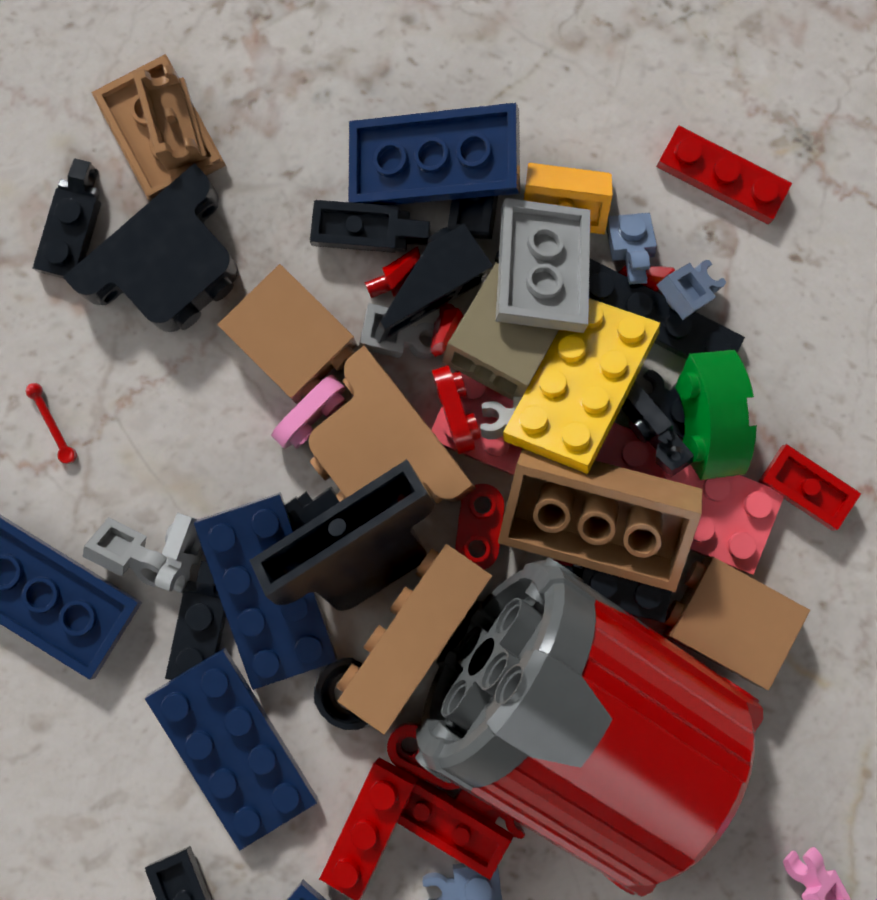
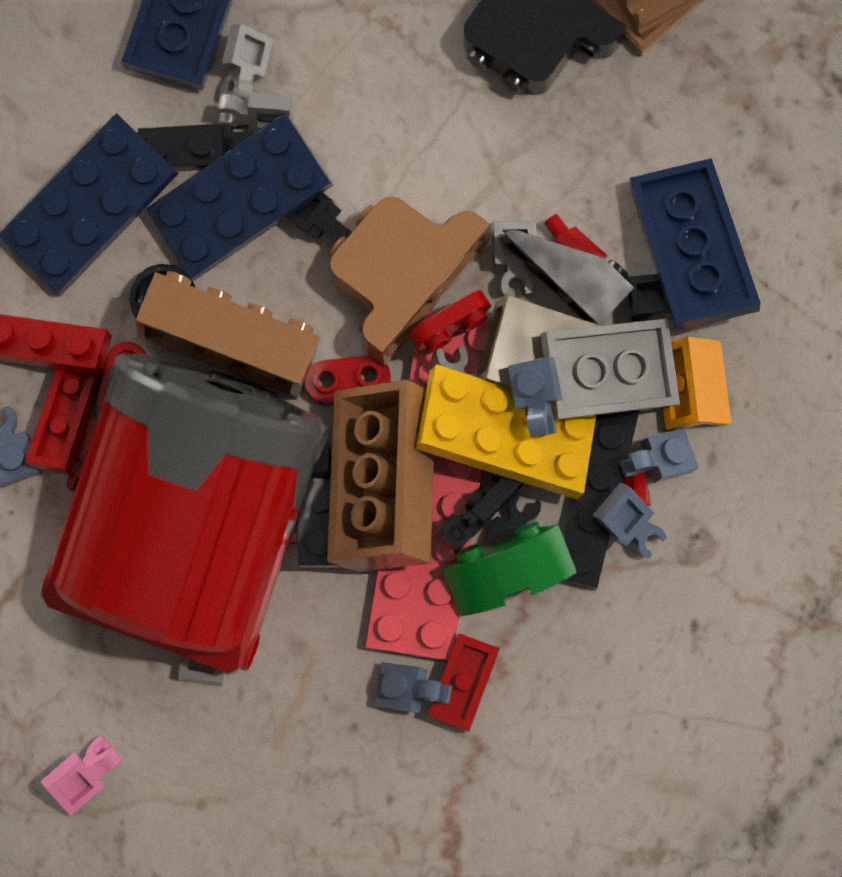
camera: 75 degrees right, 5 degrees down
(289, 334) = (485, 155): medium nougat brick -> none
(322, 399) = (428, 199): bright pink plate -> none
(351, 546) = (296, 257): black brick -> none
(365, 227) = (611, 200): black hinge -> none
(444, 328) = (529, 294): red bar -> none
(553, 336) = (535, 387): none -> sand blue plate
(724, 175) = (758, 533): red plate -> none
(735, 621) = (315, 635): medium nougat brick -> none
(806, 545) = (406, 686): none -> sand blue plate

